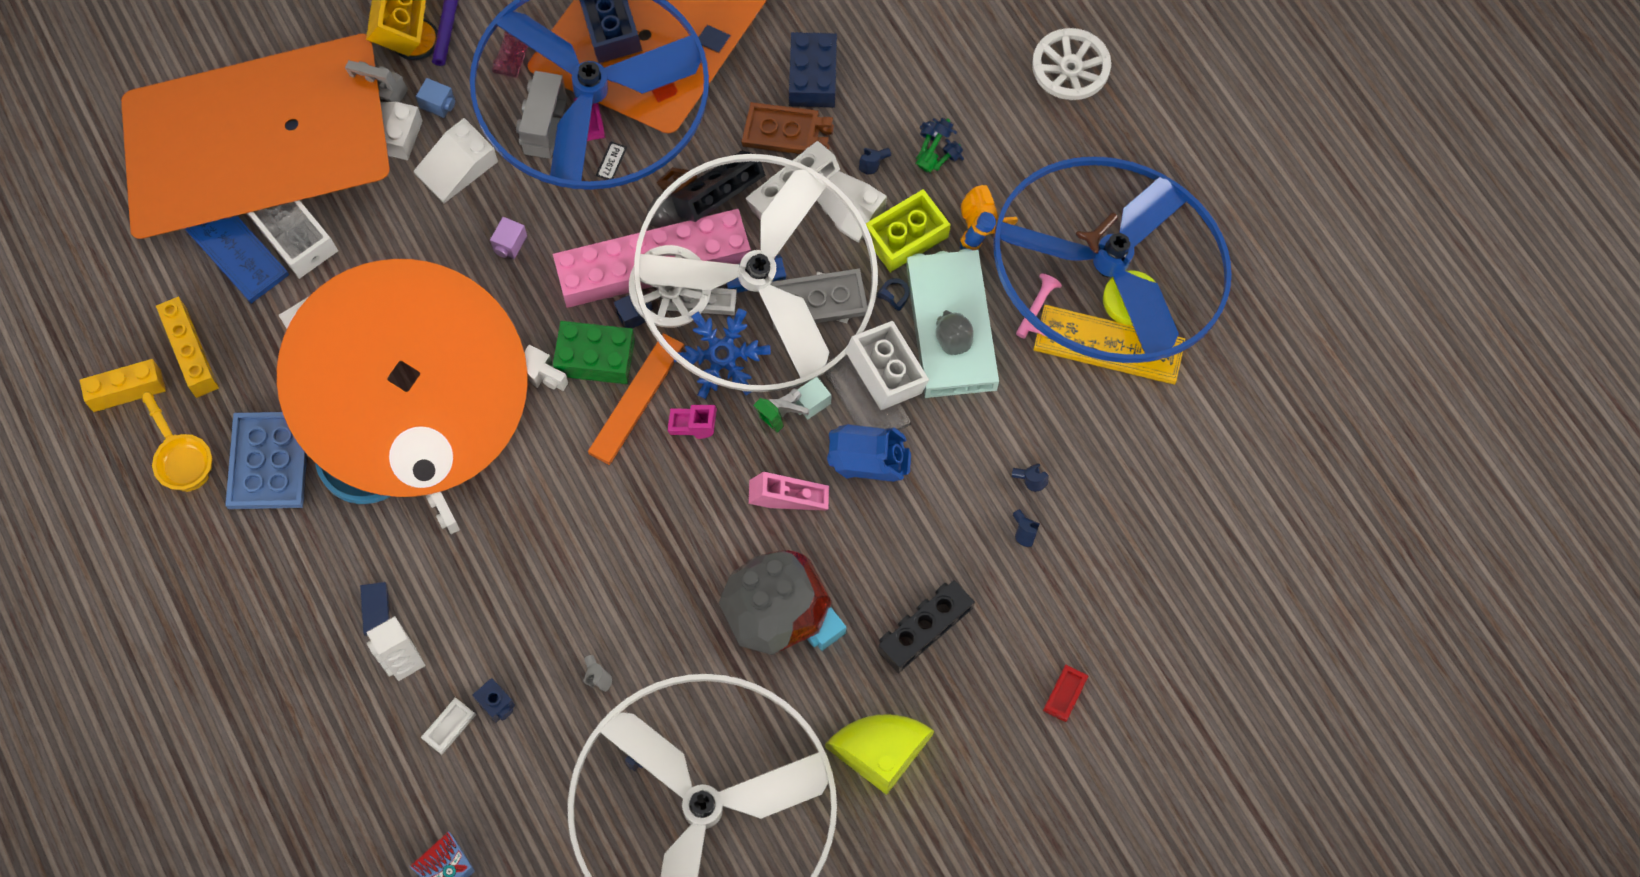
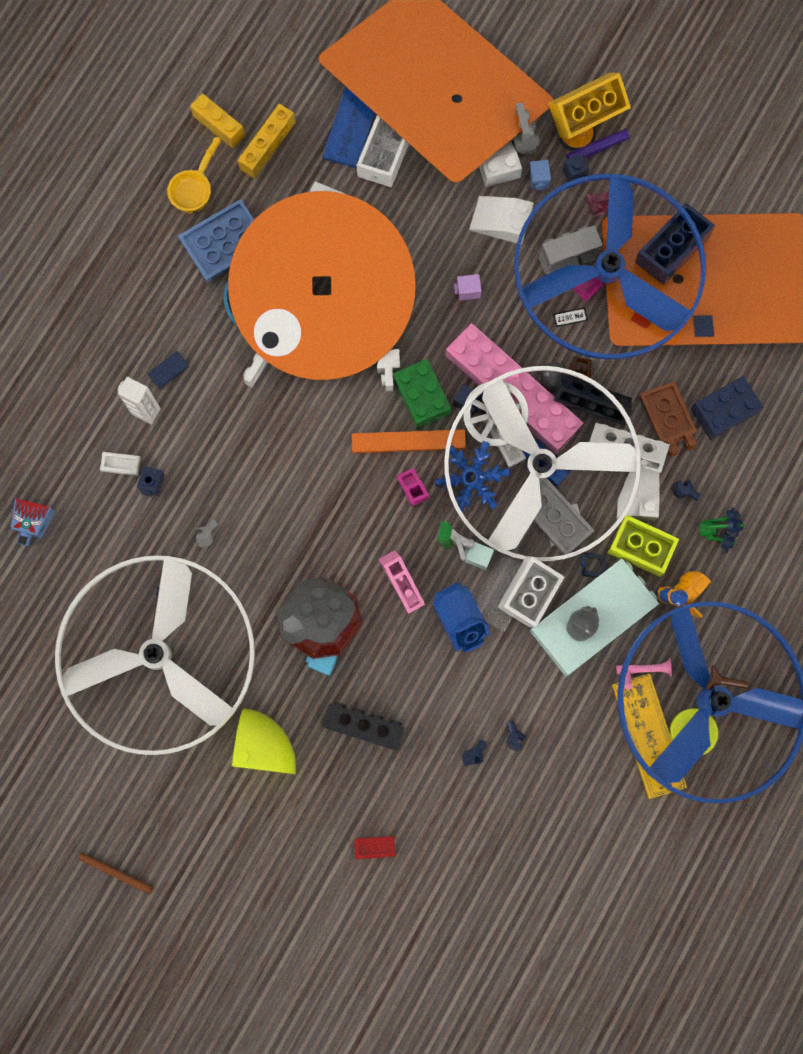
camera: 60 degrees right, 10 degrees up
(455, 60) = (575, 167): none -> dark blue brick

